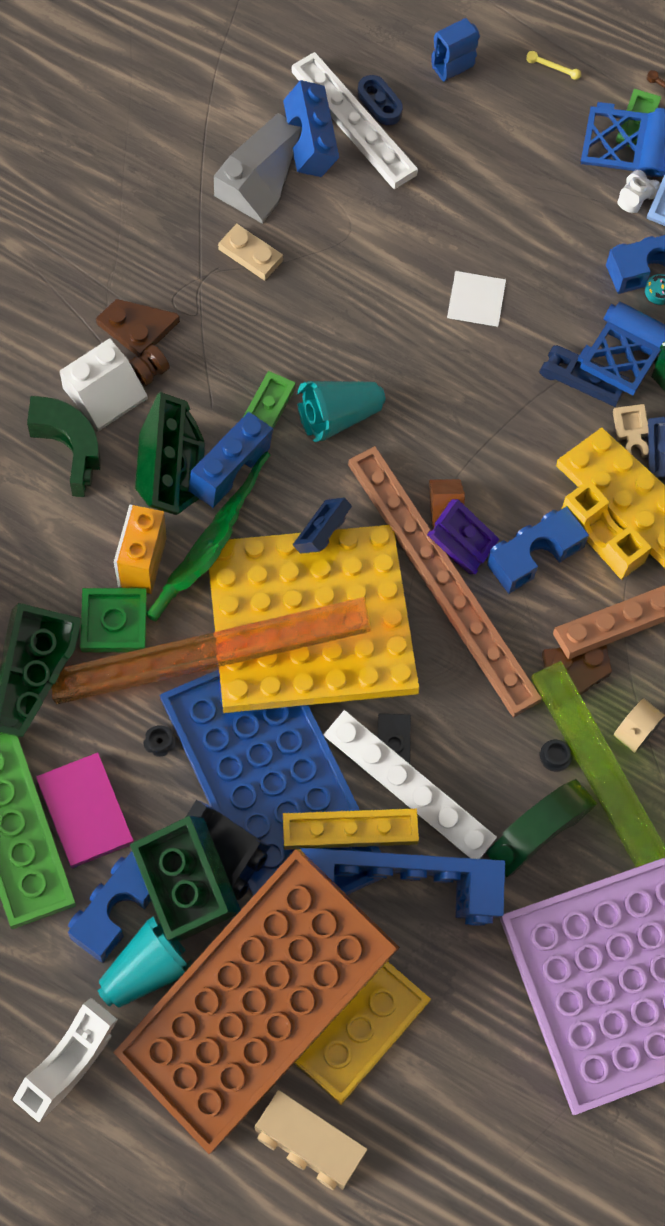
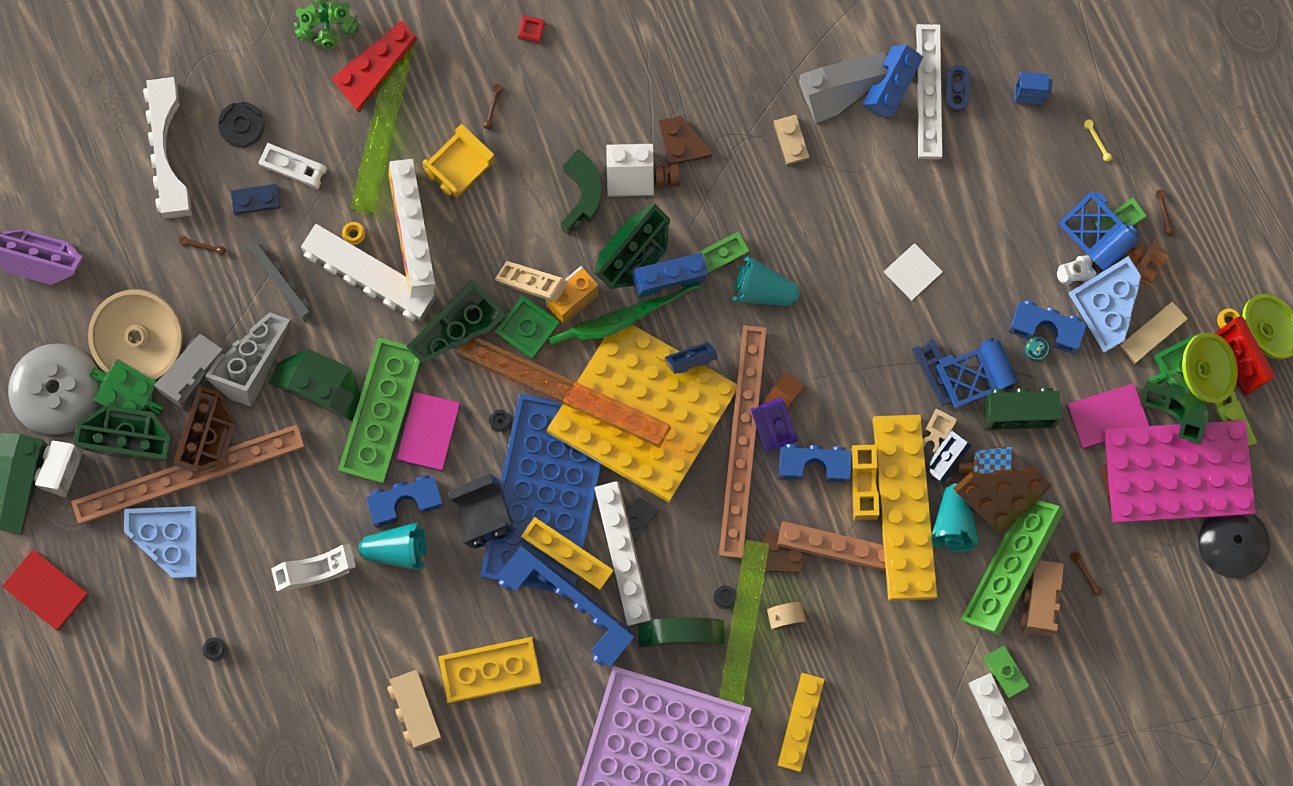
camera: 40 degrees right, 10 degrees up
(84, 560) = (531, 281): none -> tan plate
(185, 878) = (448, 515): dark green brick -> none
(255, 1000) = (437, 611): dark orange plate -> none

